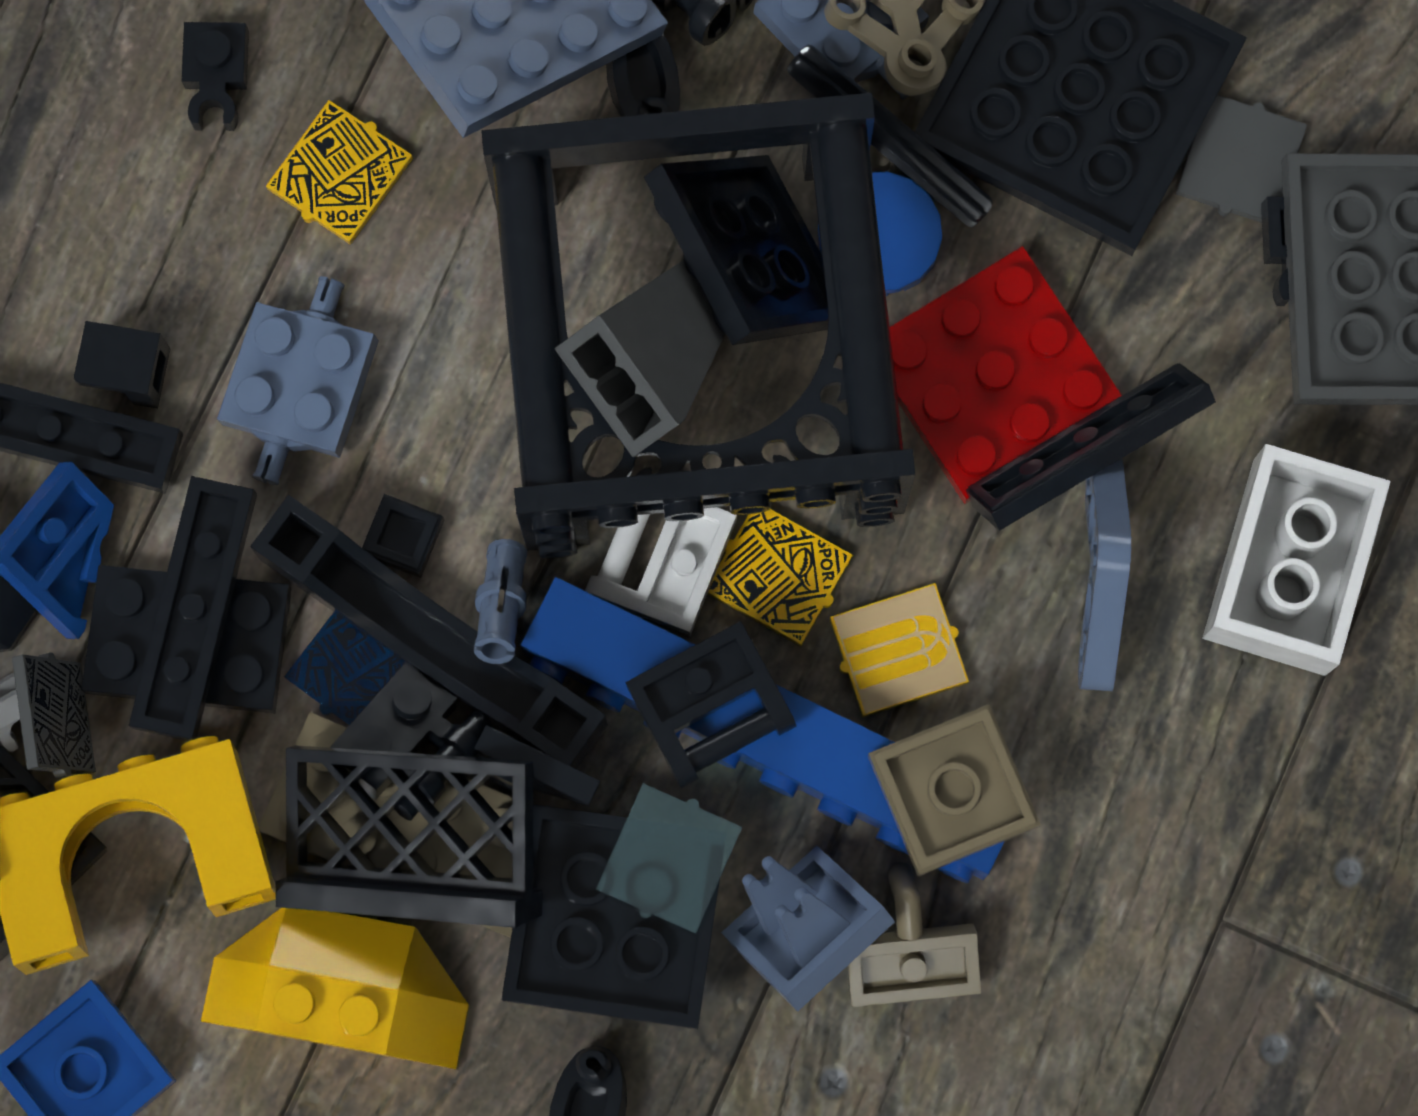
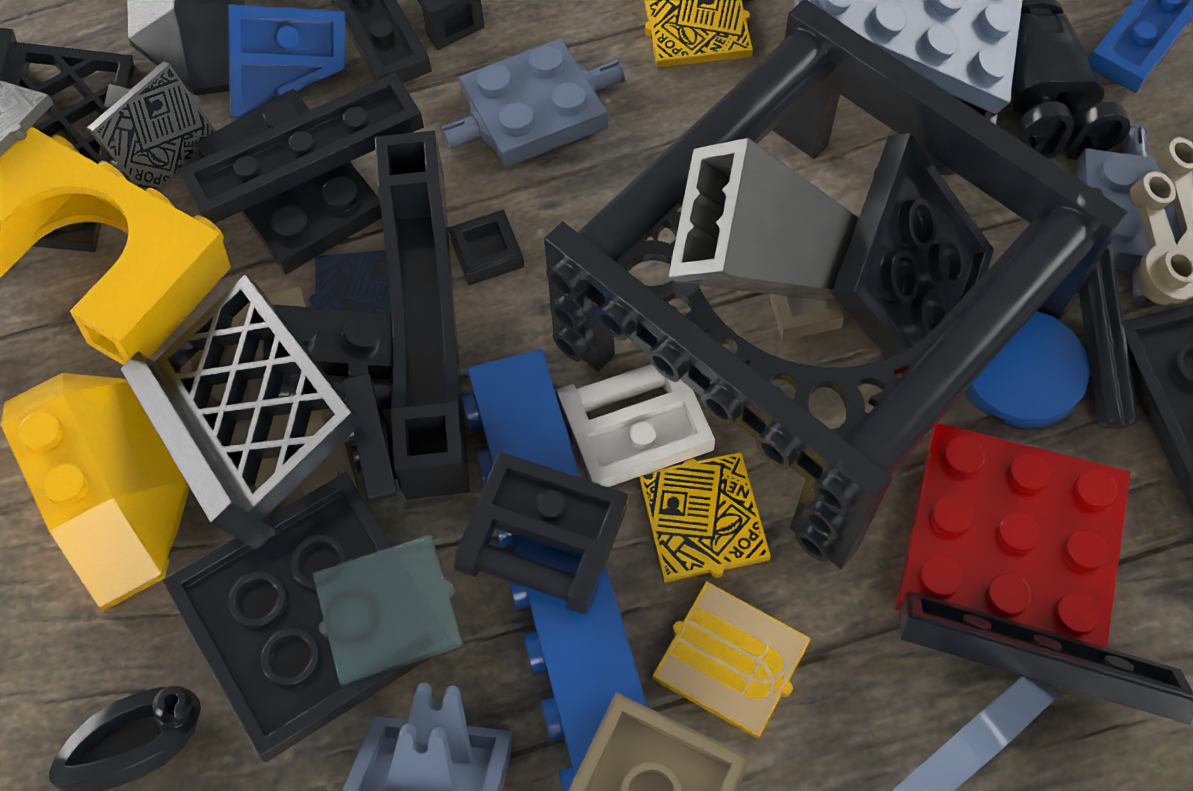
camera: 50 degrees right, 15 degrees down
(497, 630) = (489, 333): sand blue pin -> none

